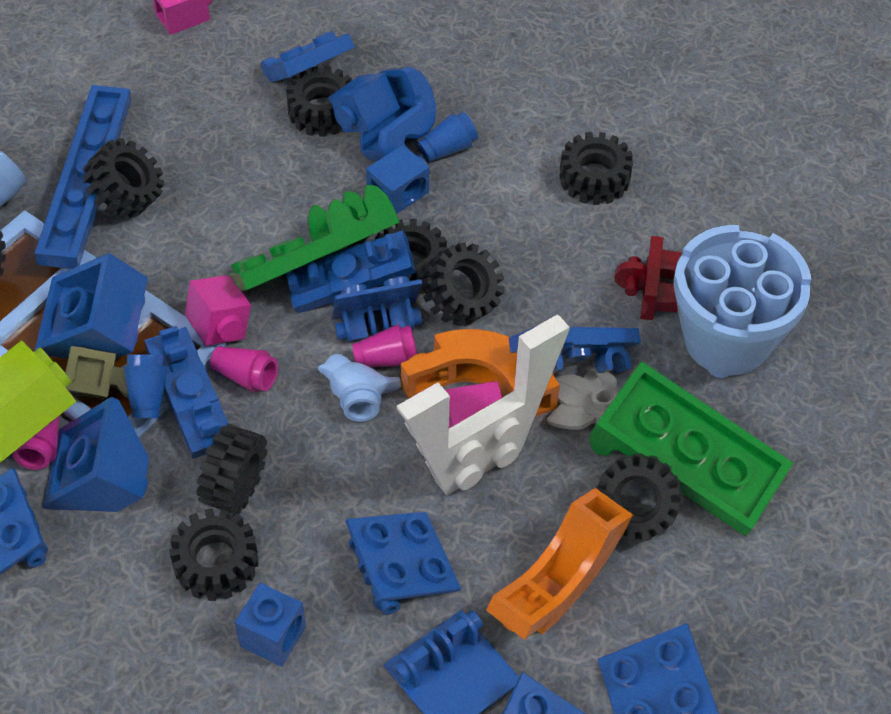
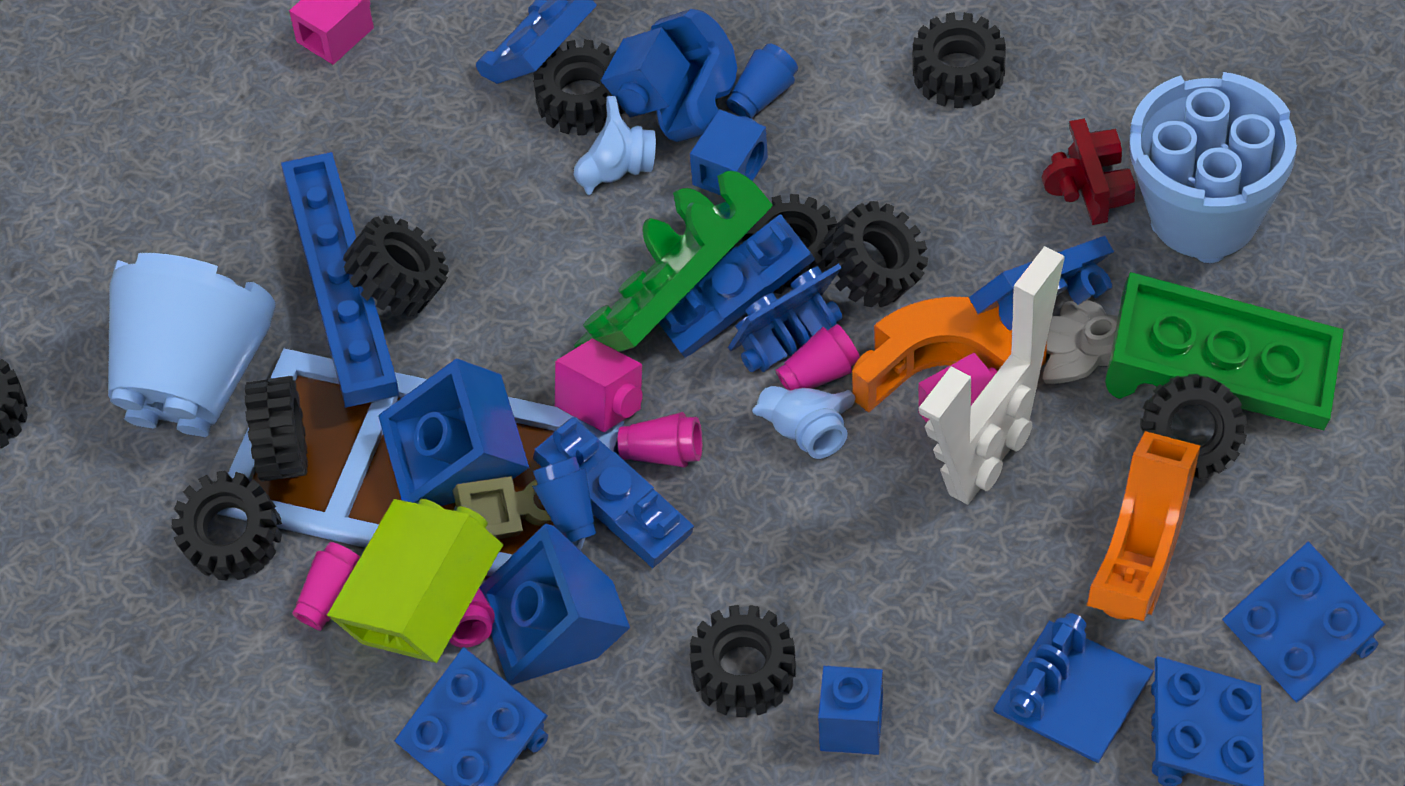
camera: 15 degrees left, 0 degrees up
(231, 468) = (719, 557): black tyre -> none
(321, 151) = (615, 151): none -> light blue animal
(400, 558) = (953, 591): blue hinge -> none

